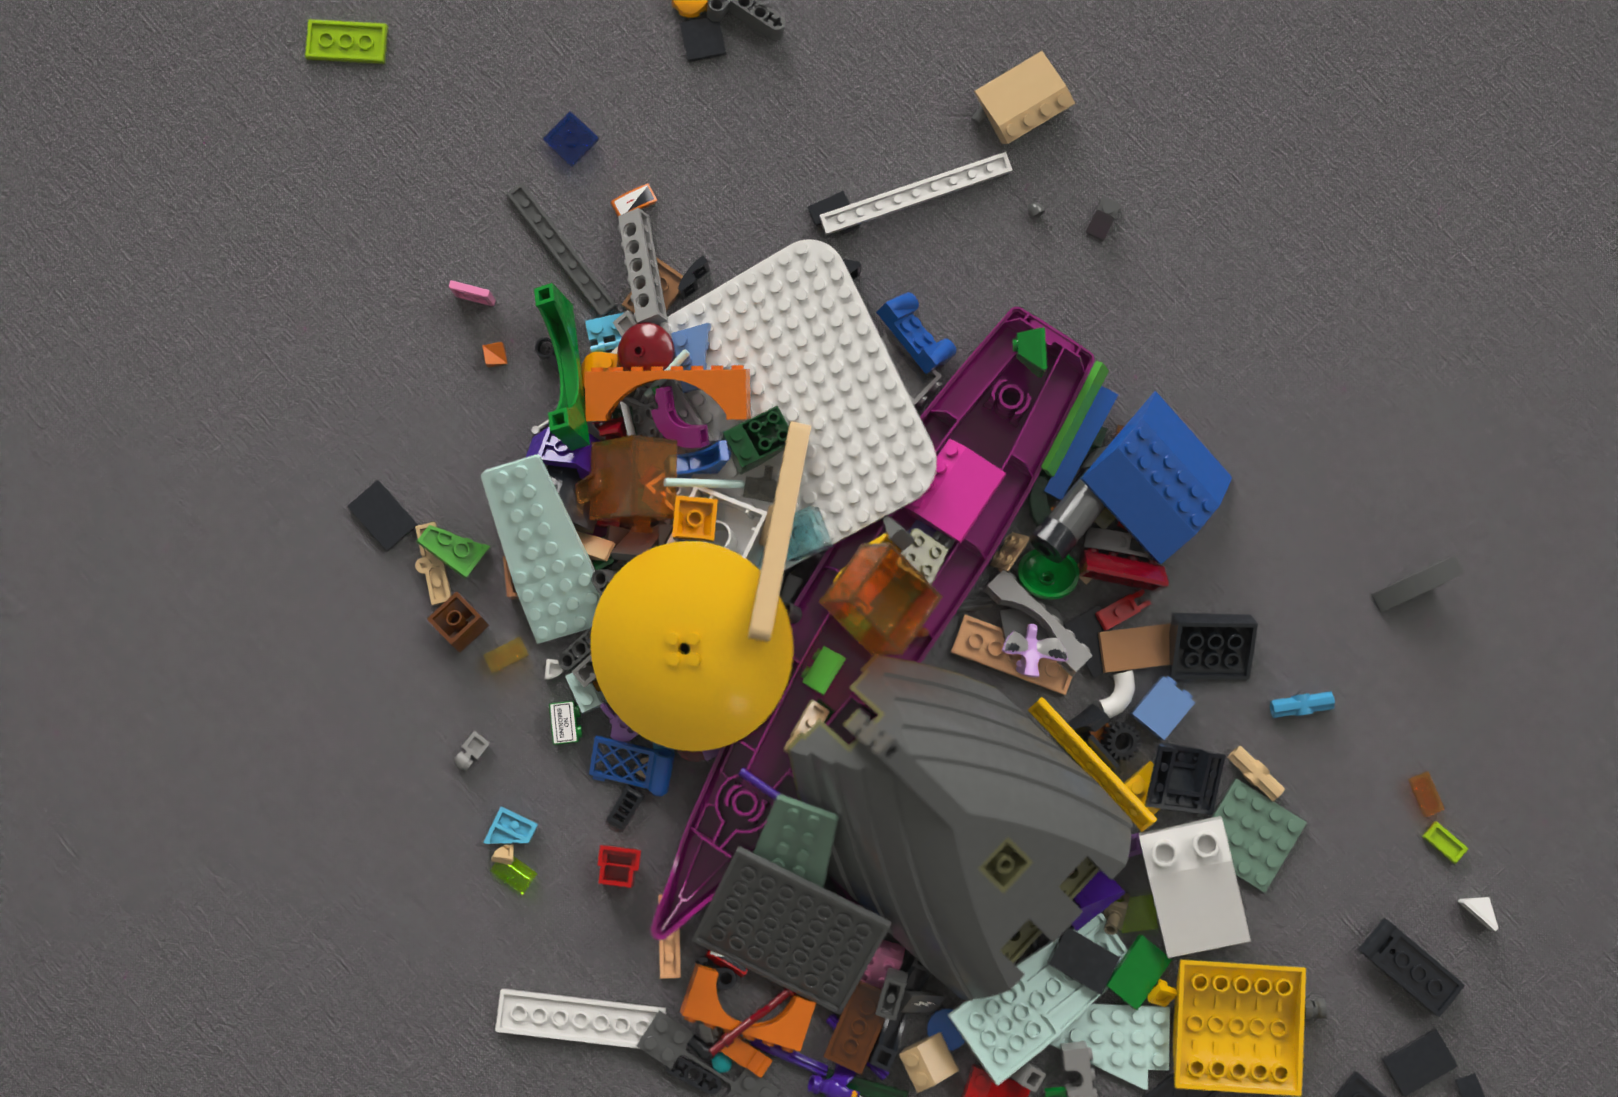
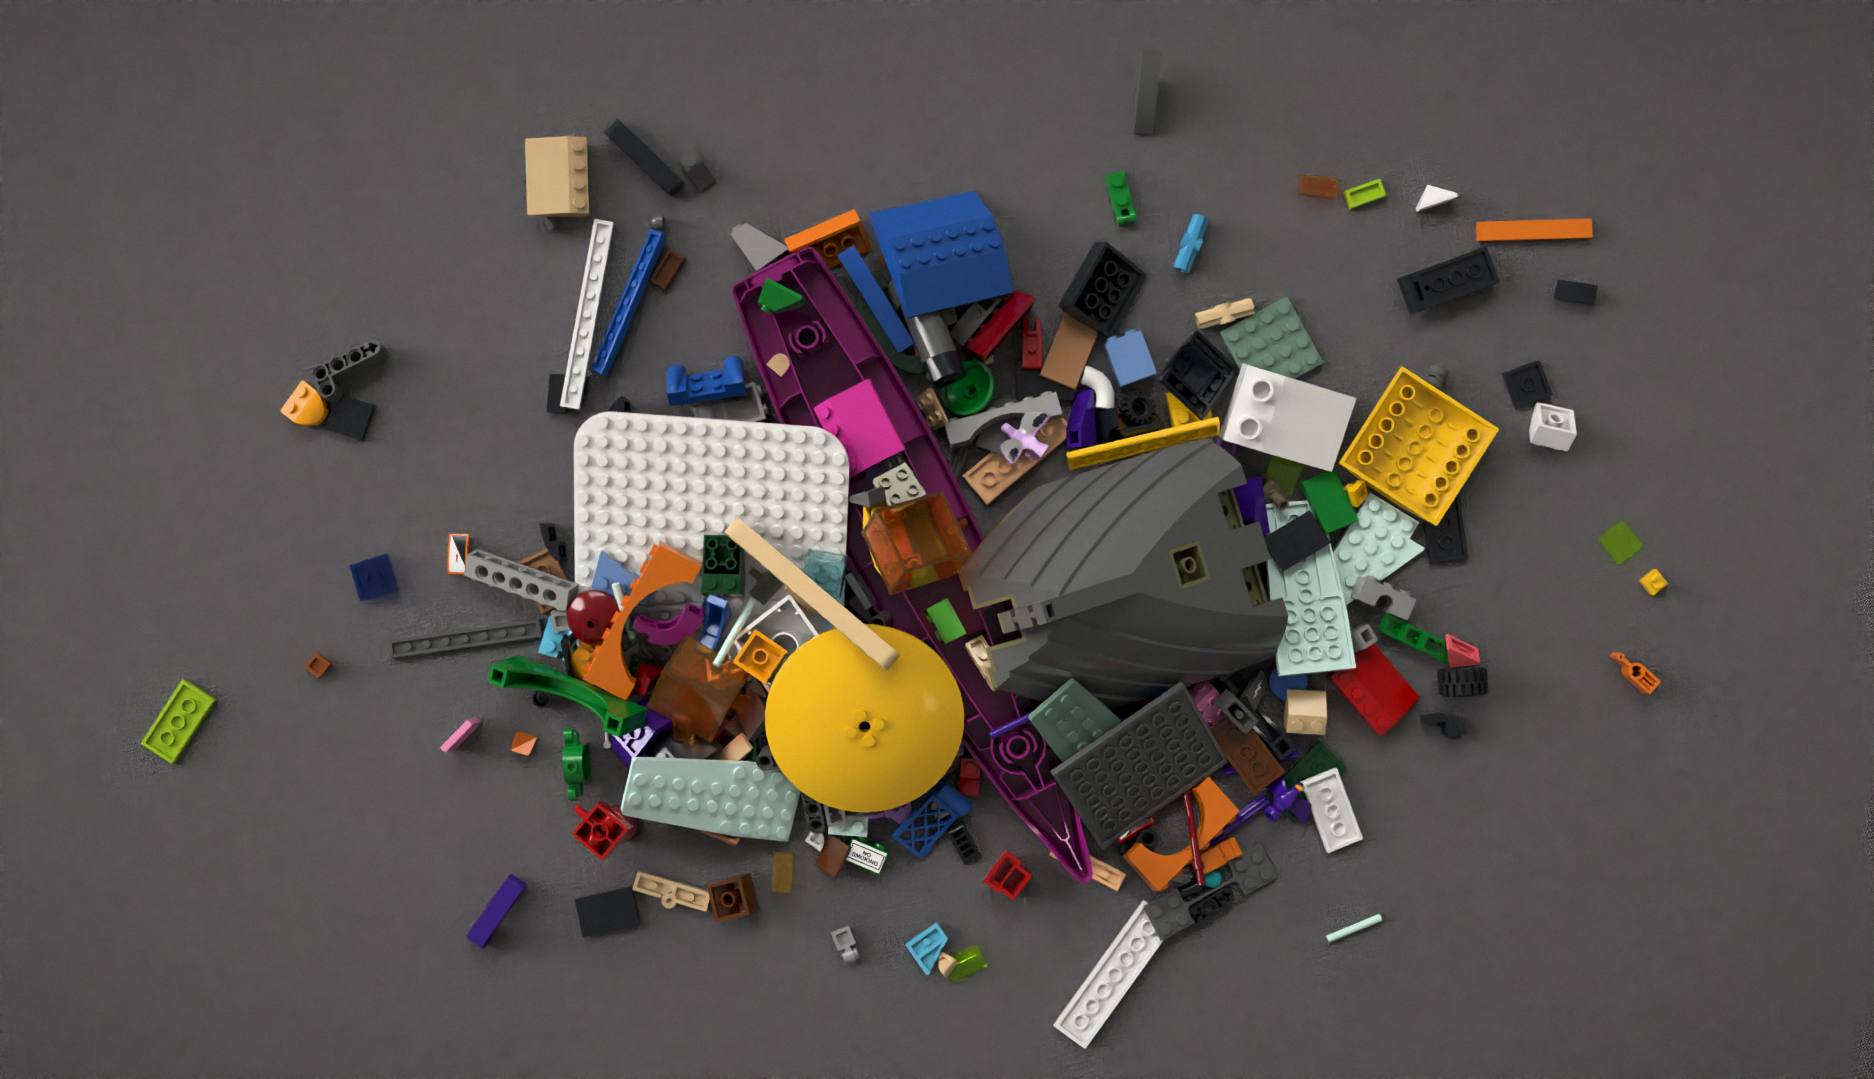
camera: 65 degrees left, 5 degrees up
(327, 414) = (495, 912): none -> dark purple beam
(454, 551) = (670, 869): bright green wing -> none
(460, 467) = (605, 828): none -> red piece
(464, 133) = (317, 665): none -> dark orange plate
(502, 410) = (575, 764): none -> green piece
(547, 692) = (833, 856): none -> reddish brown piece
(605, 341) = (566, 645): none -> black piece
(628, 419) = (645, 664): white sticker -> none
(690, 777) = (969, 776): none -> red arch
(808, 577) = (861, 589): none -> dark grey tile
(948, 224) = (628, 302): none -> blue plate
(971, 387) = (779, 363): none -> tan tile
(998, 242) = (667, 269): none -> reddish brown tile
(1066, 310) = (757, 246): none -> light grey slope
(1075, 418) = (853, 292): bright green tile -> none
(1078, 696) = (1081, 423): none -> dark purple slope
(1086, 165) = (644, 157): none -> black beam
(1122, 377) = (832, 238): none -> orange slope
(1305, 615) = (1120, 197): none -> green plate
(1419, 1062) = (1525, 318): black tile -> none
(1507, 1024) = (1534, 230): none -> orange tile

